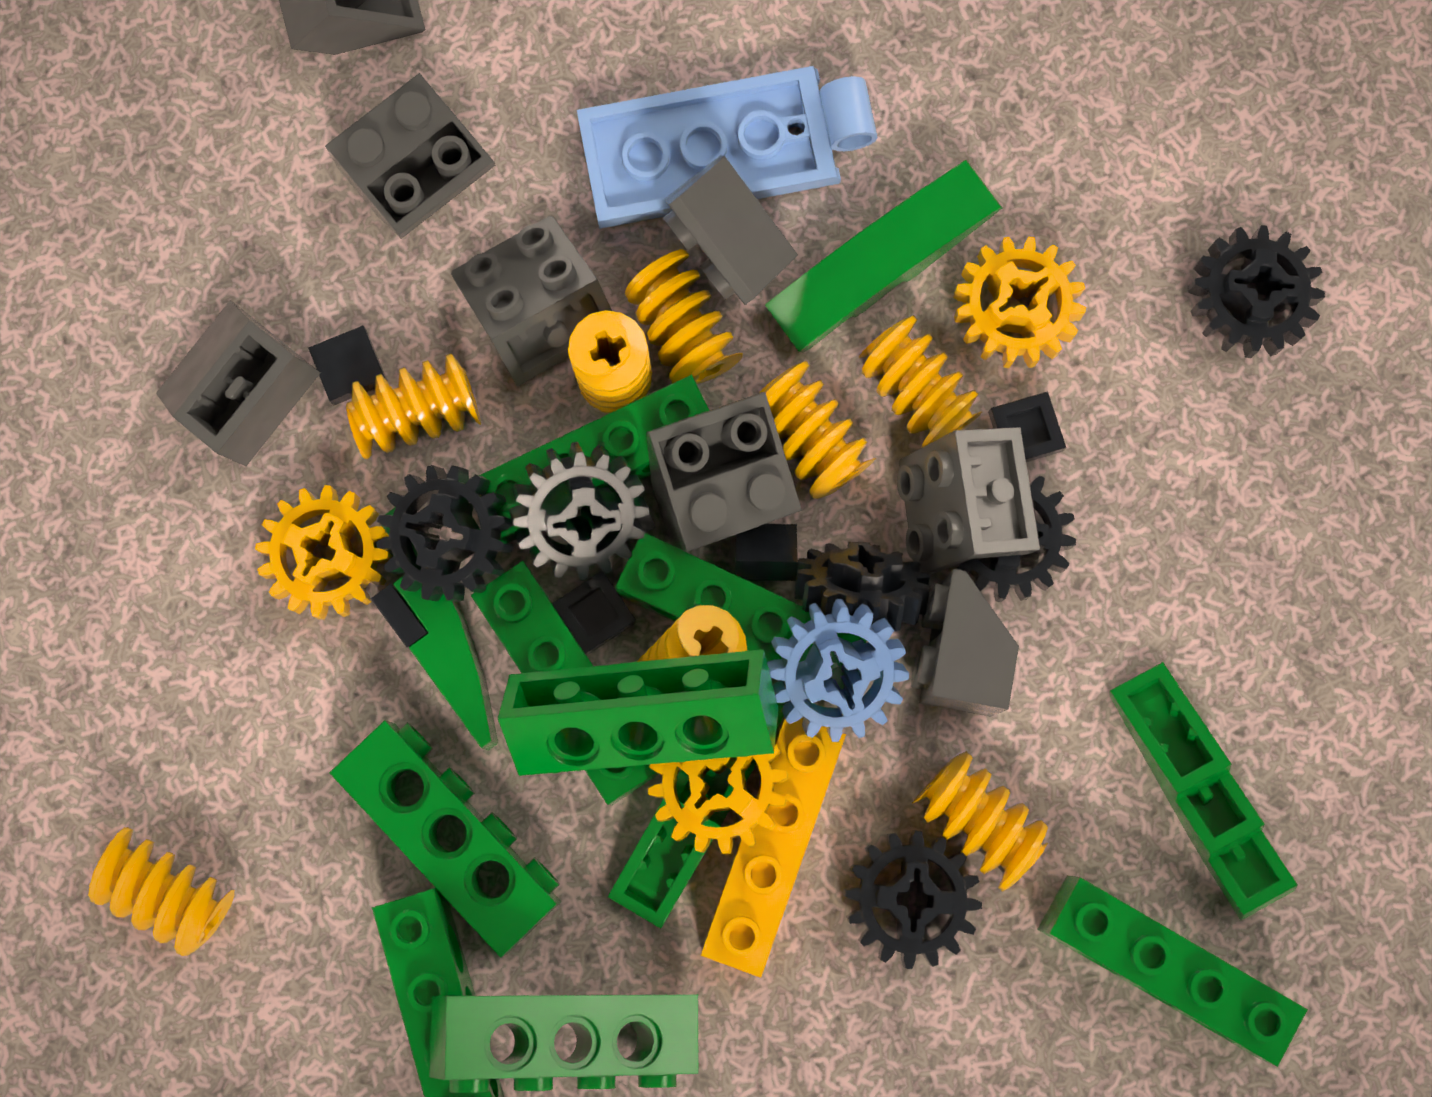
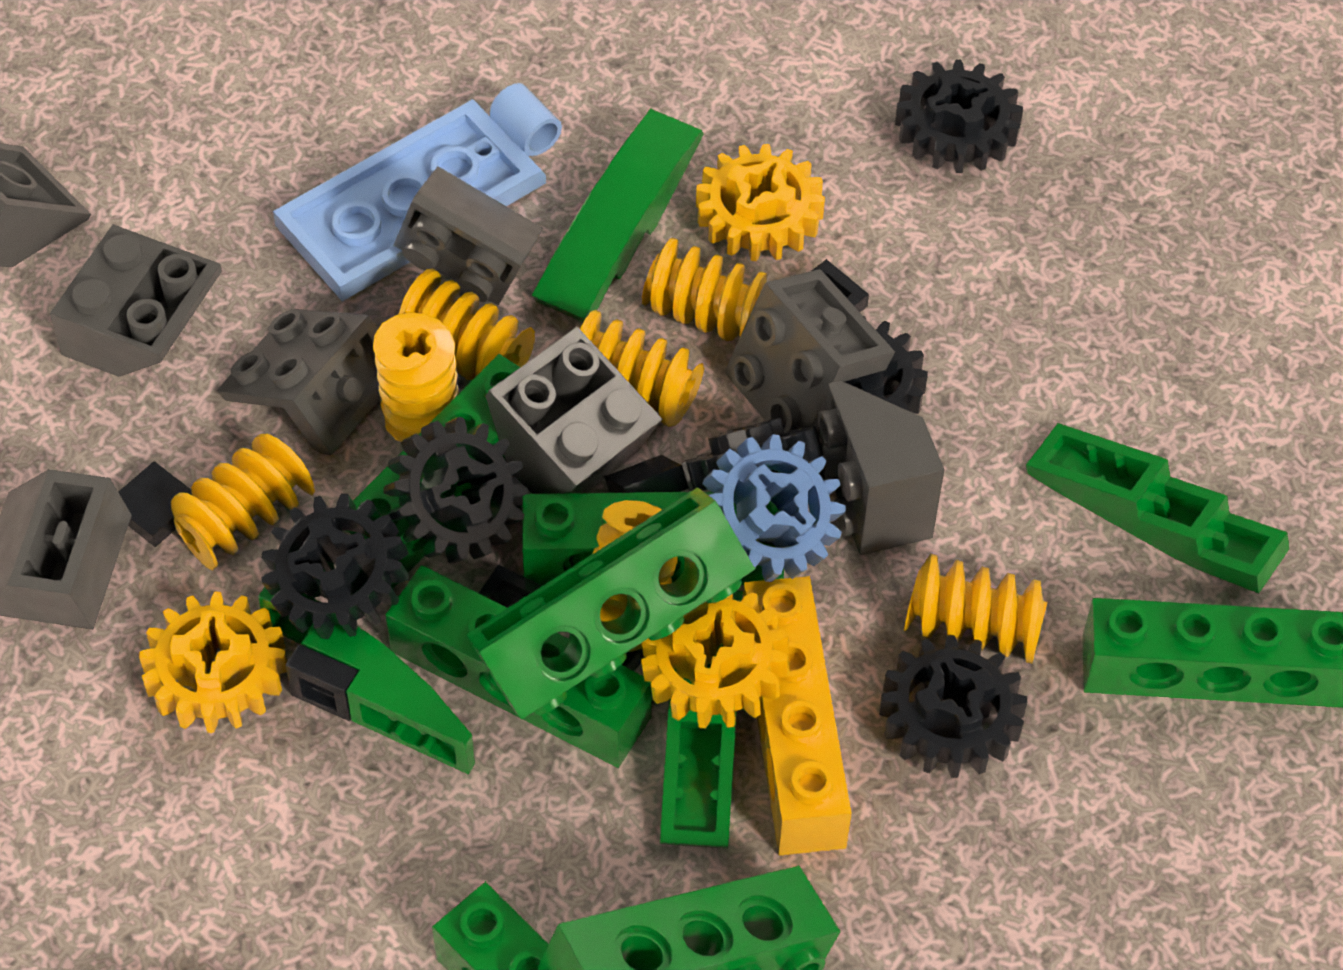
camera: 30 degrees left, 25 degrees down
(370, 779) = (383, 798): green brick -> none

